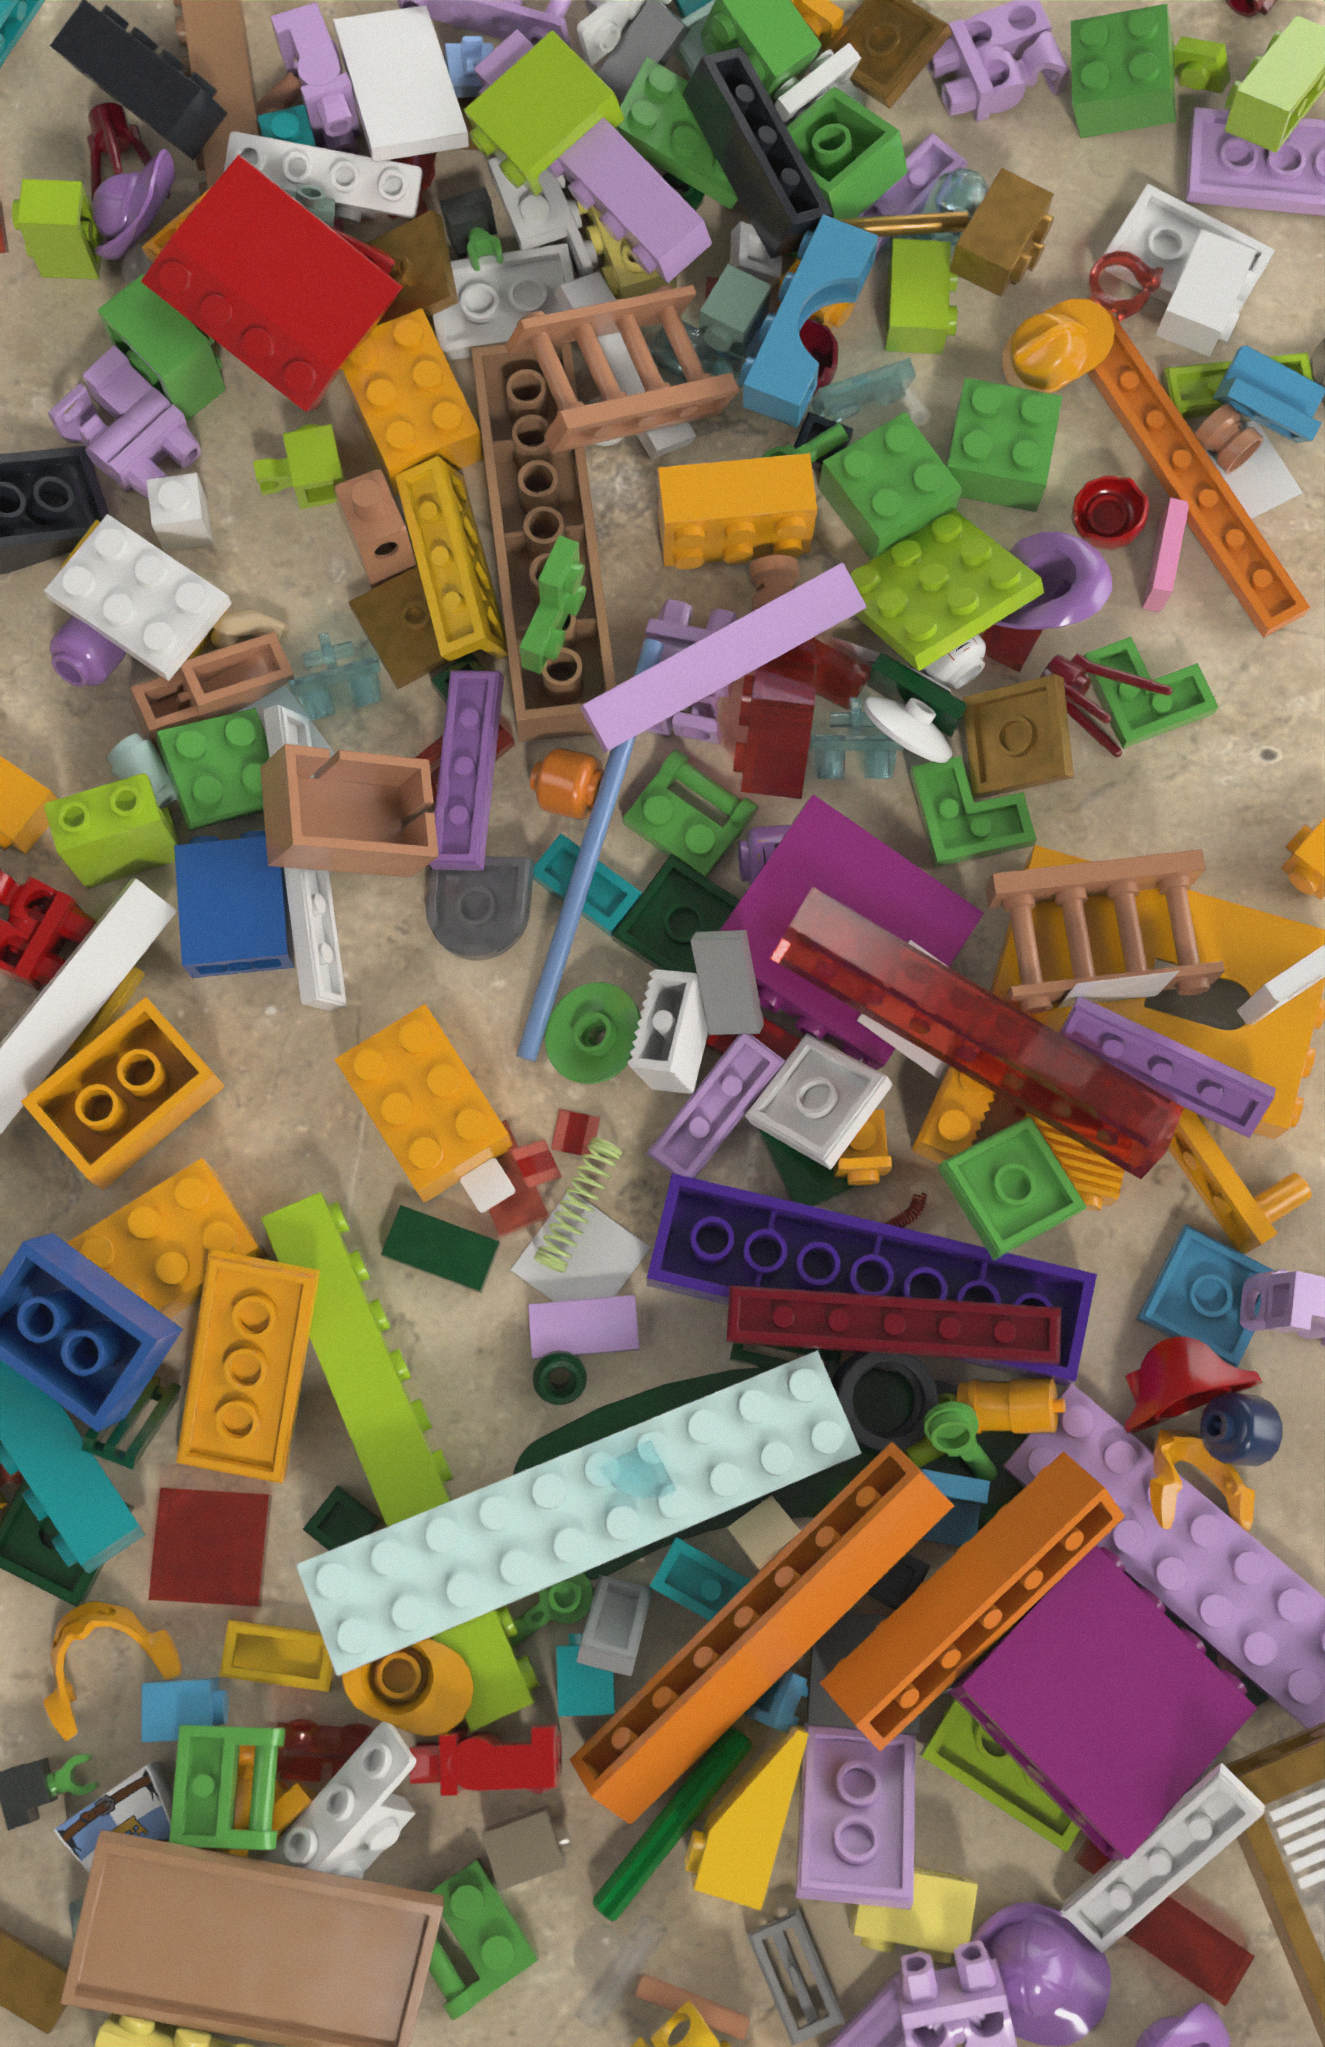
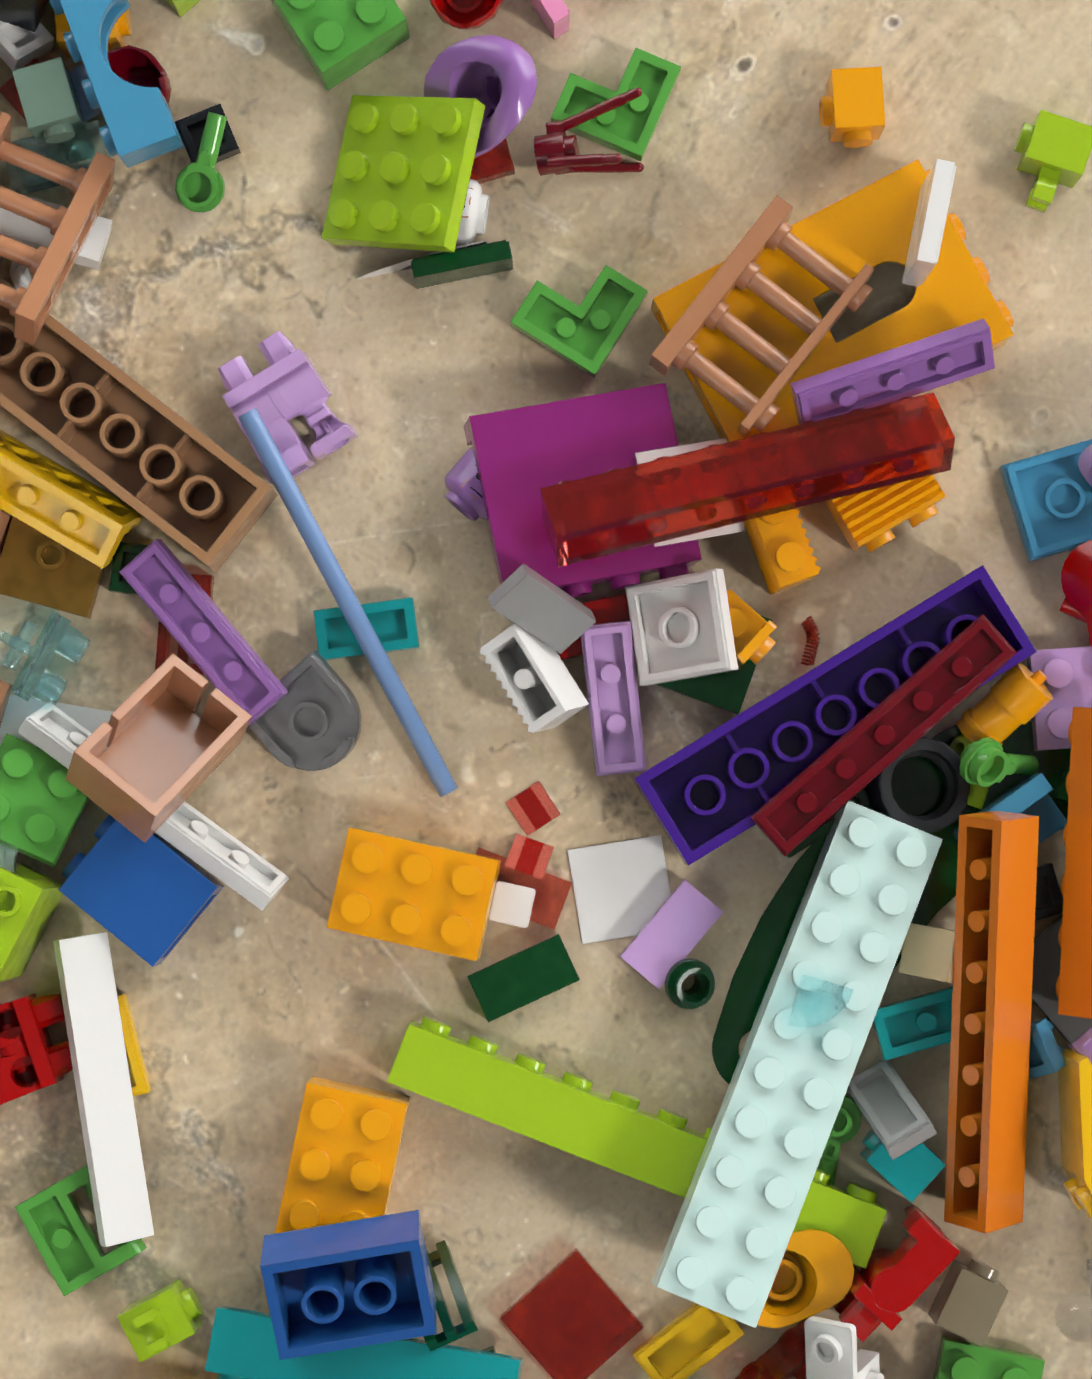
camera: 40 degrees left, 10 degrees up
(122, 1094) = (204, 1092): light orange brick -> none
(247, 1366) = (479, 1185): light orange tile -> none
(340, 1520) = (642, 1220): dark green tile -> none
(559, 595) = (150, 449): bright green plate -> none
(567, 782) = (283, 570): orange head -> none
(579, 1021) = (462, 740): bright green dish -> none
(604, 1148) = (600, 912): yellowish green piece -> none
(669, 915) = (453, 589): dark green tile -> none
(671, 1823) = (1045, 1194): green axle -> none
(679, 827) = (392, 523): bright green plate -> none
(722, 657) = (307, 376): lavender tile -> none
(736, 510) = (204, 254): light orange brick -> none
(772, 578) = (284, 281): nougat wheel -> none
(779, 720) = (390, 383): clear red brick -> none
(830, 749) = (472, 331): clear light blue hips -> none
(837, 673) = (370, 311): clear red hinge -> none
(882, 384) = (210, 49): clear light blue plate -> none
(888, 485) = (291, 125): bright green brick -> none
(909, 726) = (483, 297): white dish -> none
(1011, 1187) = (870, 561): bright green plate -> none
(1018, 736) = (564, 228): pearl gold plate -> none
(1119, 988) = (816, 351): white sticker -> none
(1241, 1216) = (1035, 423): light orange piece -> none

